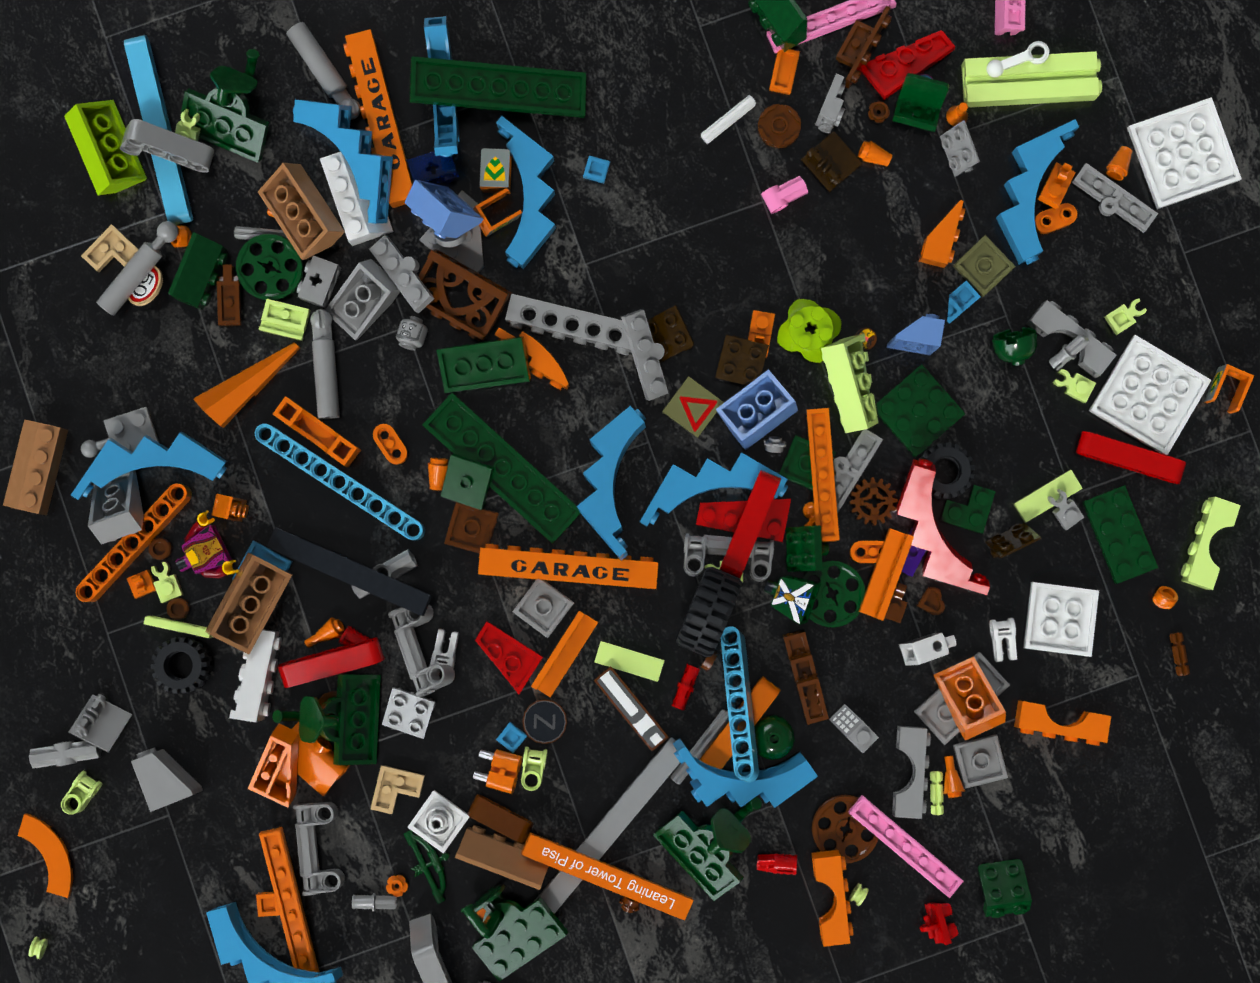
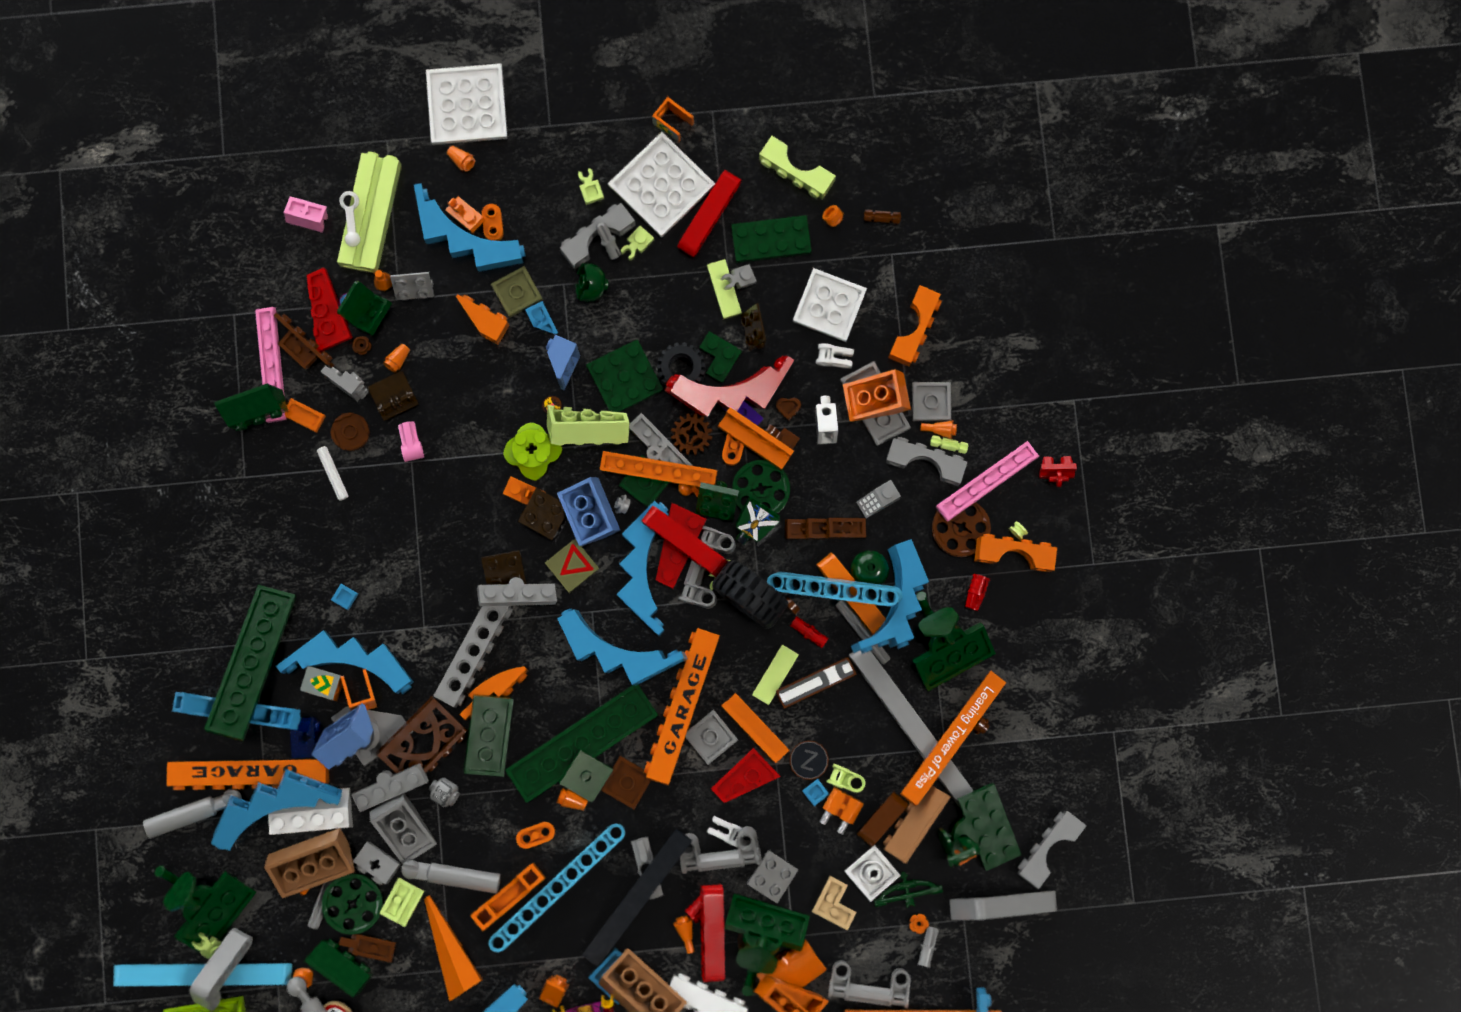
camera: 80 degrees left, 5 degrees down
(1004, 888) = (1041, 408): dark green bracket -> none
(1114, 198) = (489, 170): light grey hinge -> none

